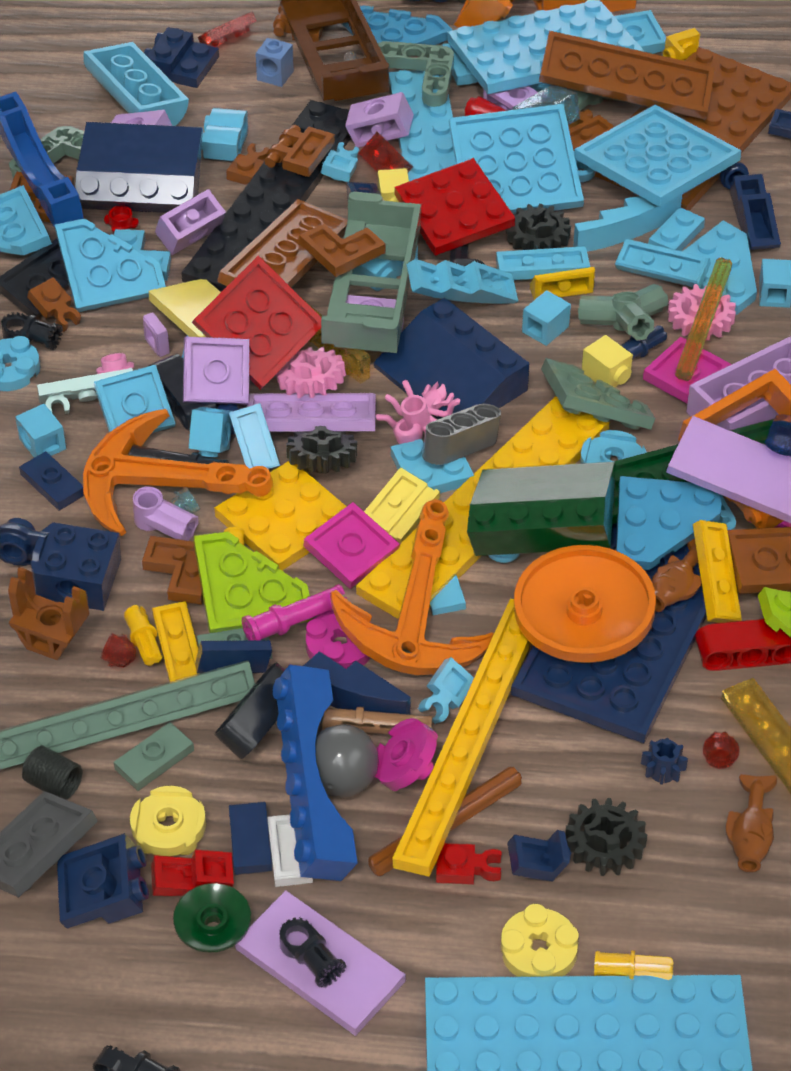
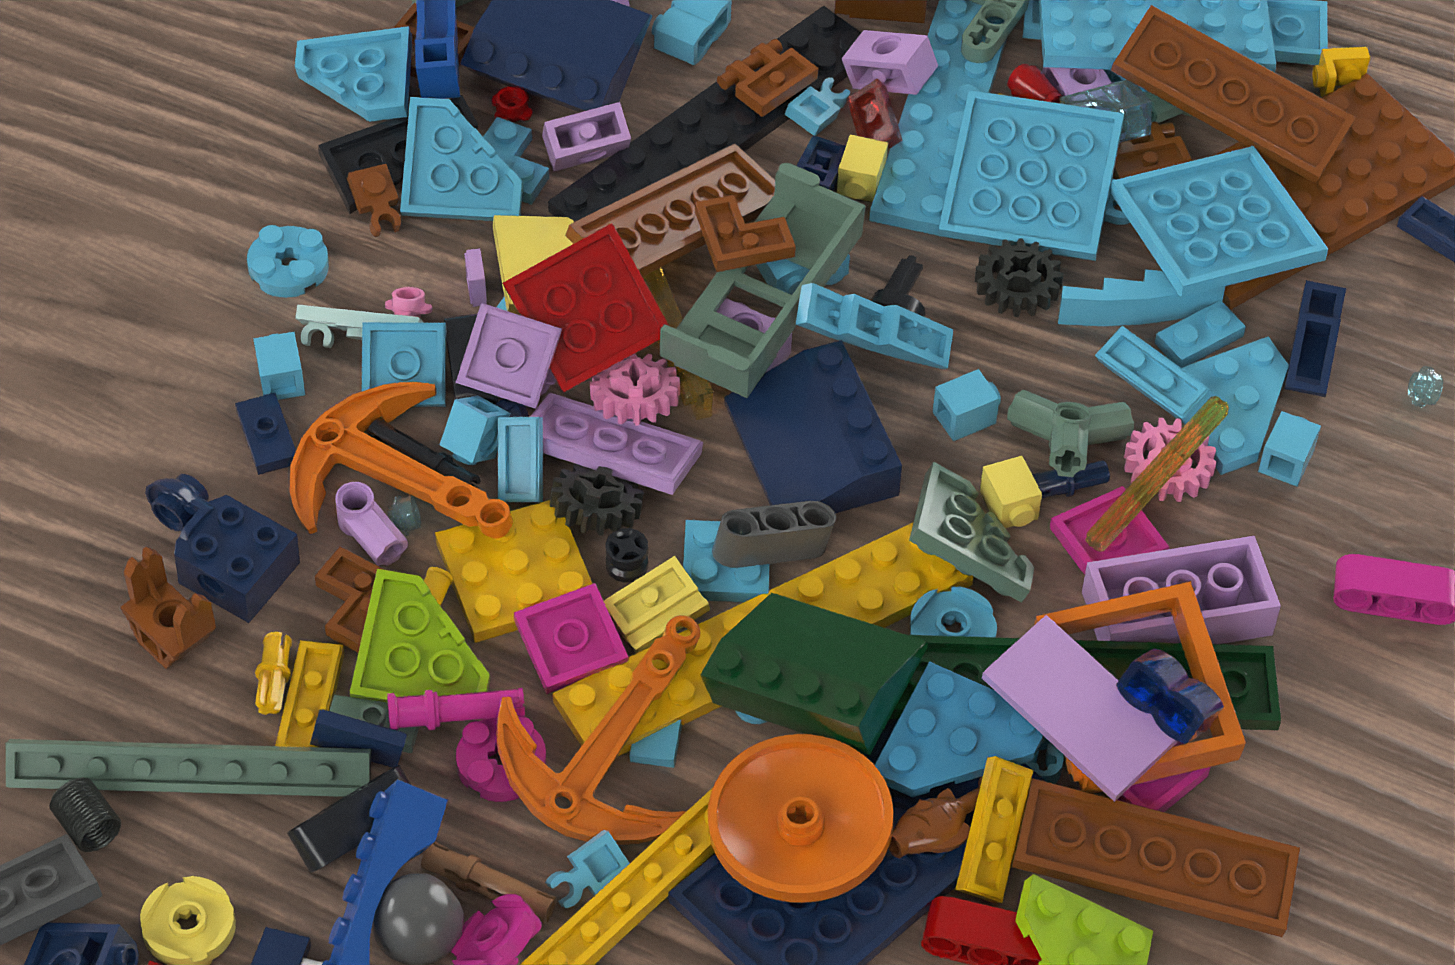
camera: 20 degrees right, 5 degrees up
(33, 329) = (335, 225): black connector -> none
(118, 651) = (234, 684): clear red plate -> none
(153, 756) = (213, 832): sand green plate -> none
(245, 167) = (699, 74): dark orange plate -> none
(361, 481) = (621, 545): none -> black wheel
(361, 688) = (481, 828): dark blue slope -> none
(418, 411) = (736, 488): bright pink animal -> none
(456, 206) = (921, 215): red plate -> none
(528, 263) = (1003, 326): medium azure plate -> none
(564, 283) = (1013, 364): yellow slope -> none
(727, 175) = (1318, 272): dark blue plate -> none

